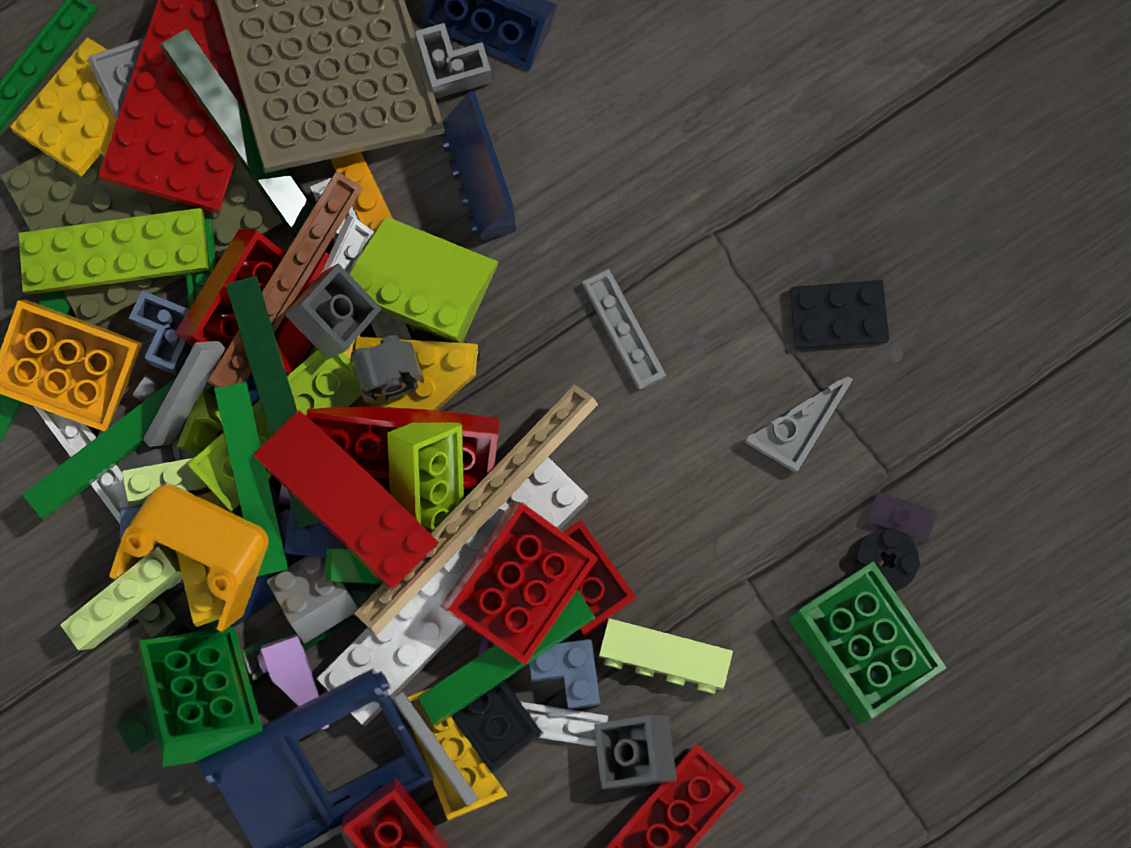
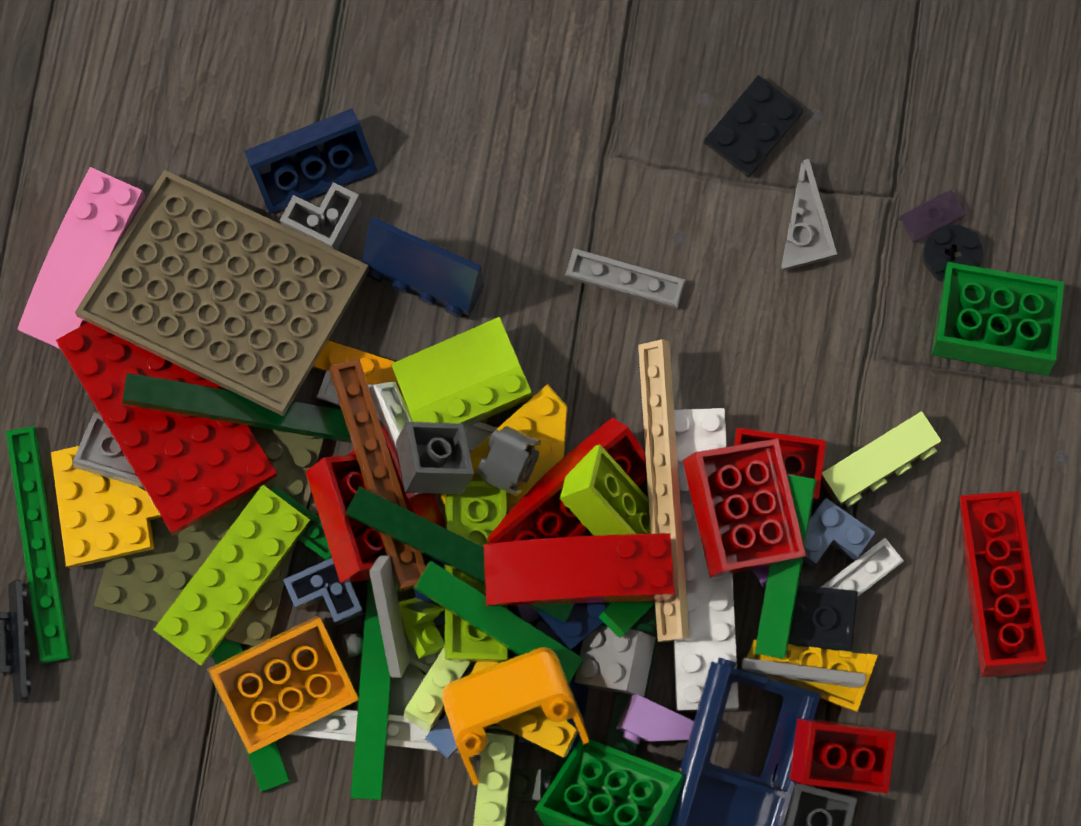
camera: 45 degrees left, 0 degrees up
(635, 752) = (930, 540): dark grey brick -> none

